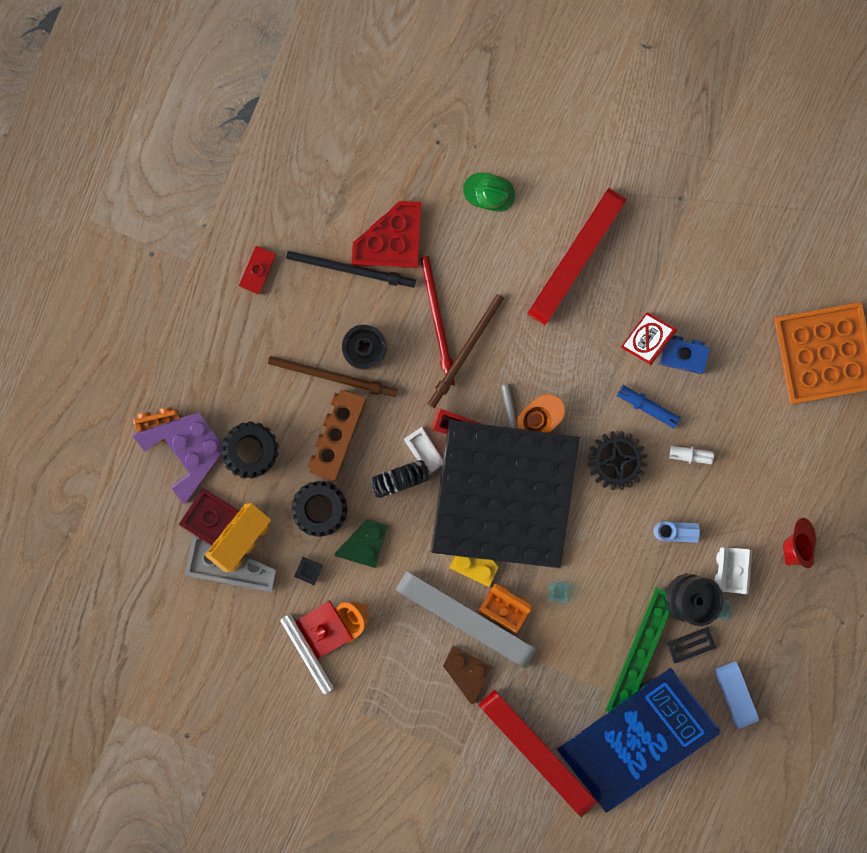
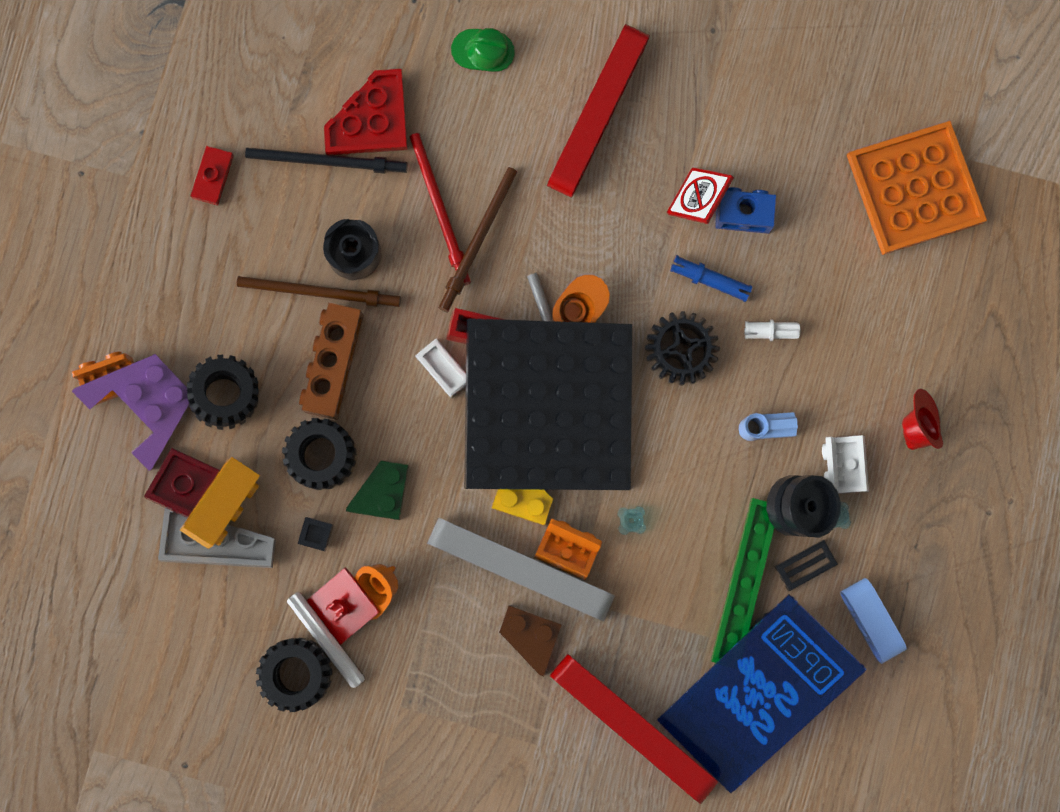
camera: 10 degrees left, 5 degrees down
(266, 691) = (270, 680): none -> black tyre
(400, 478) = (415, 403): black gear -> none

